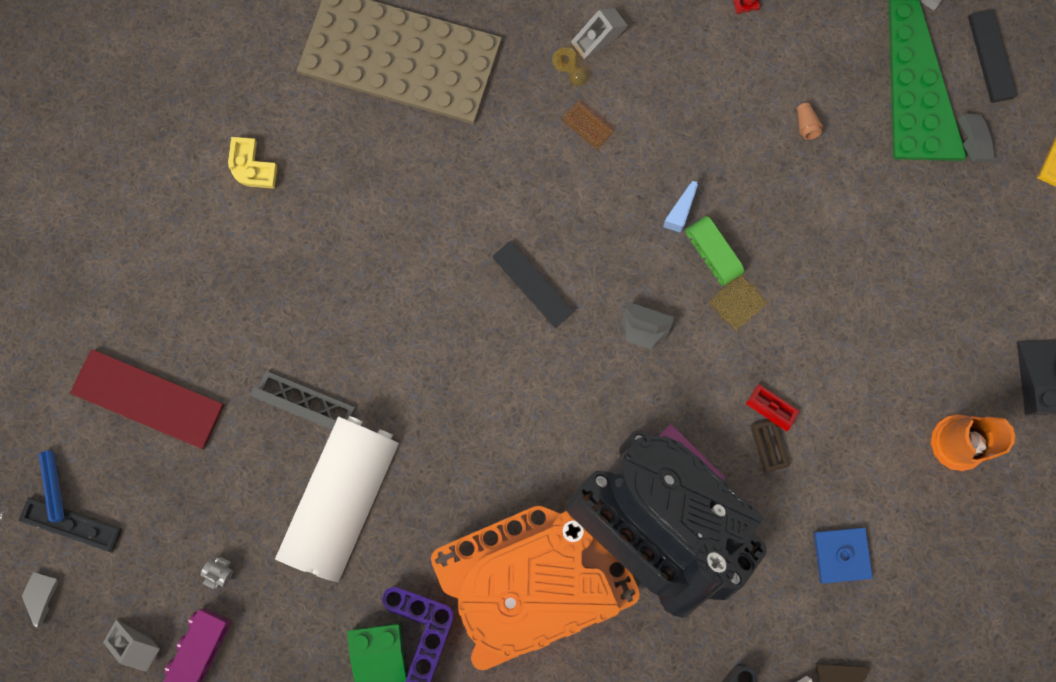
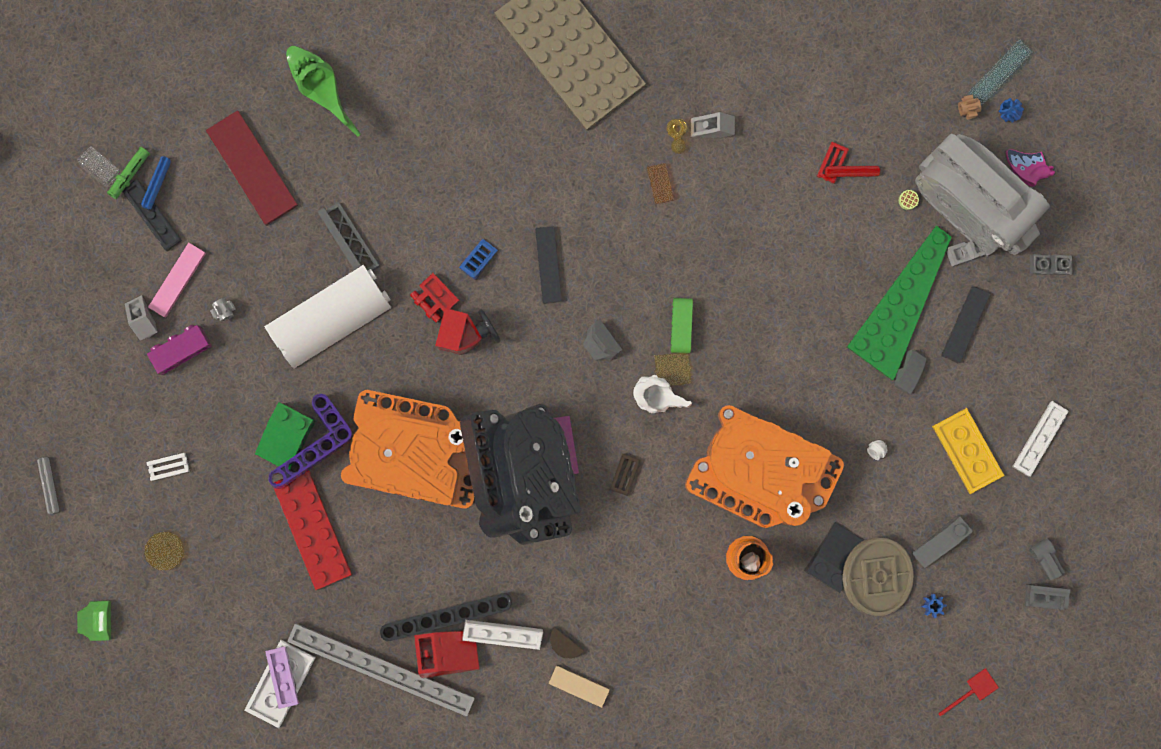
camera: 30 degrees right, 5 degrees up
(13, 497) = (127, 174): none -> bright green pin
(37, 596) = (103, 246): light grey slope -> none
(144, 576) = (177, 280): none -> bright pink tile
(157, 260) = (317, 82): none -> bright green piece
(246, 169) = (415, 57): light yellow plate -> none
(441, 393) = (438, 293): none -> red plate
(450, 347) = (468, 260): none -> blue slope
(494, 417) = (460, 335): none -> red piece
(679, 213) = (677, 284): light blue slope -> none
(743, 339) = (656, 395): none -> white hair
(771, 410) = (641, 452): red tile -> none
(809, 123) = (807, 283): nougat cone -> none
(842, 555) = (620, 574): blue plate -> none
(916, 336) = (764, 470): none -> orange piece
(1005, 238) = (877, 449): none -> white plate

